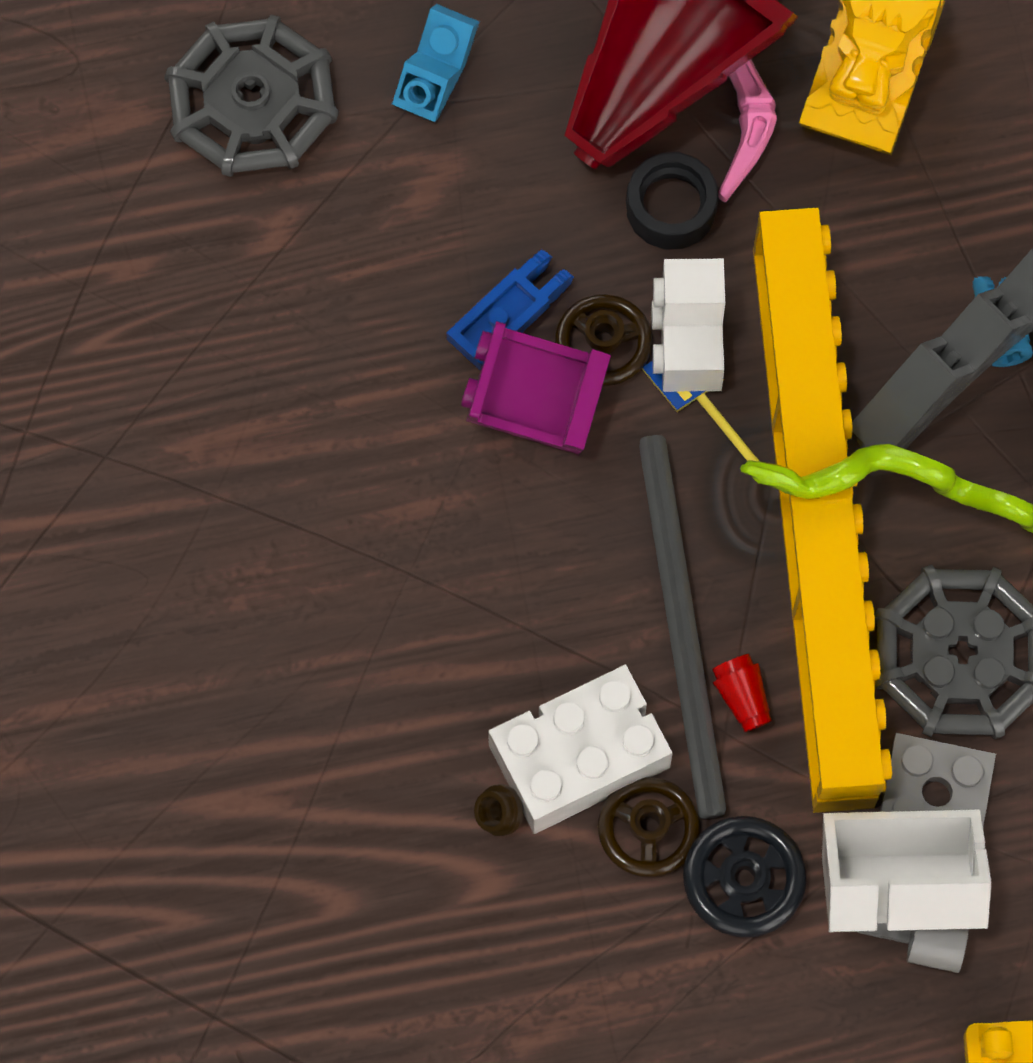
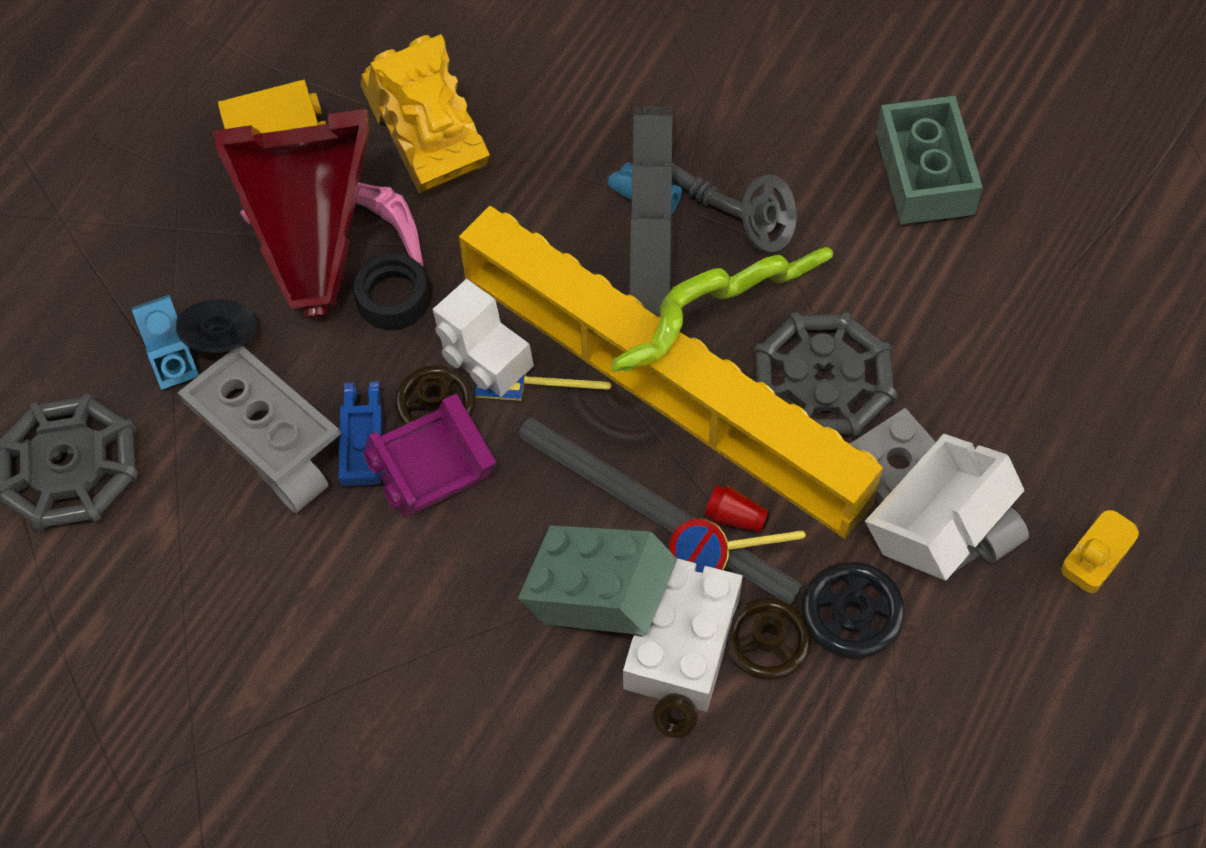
camera: 45 degrees left, 10 degrees down
(431, 251) = (279, 442): none -> light grey hinge
(489, 89) = (216, 325): none -> black dish
(551, 634) = (598, 579): none -> sand green brick
(675, 698) = (707, 544): none -> piece

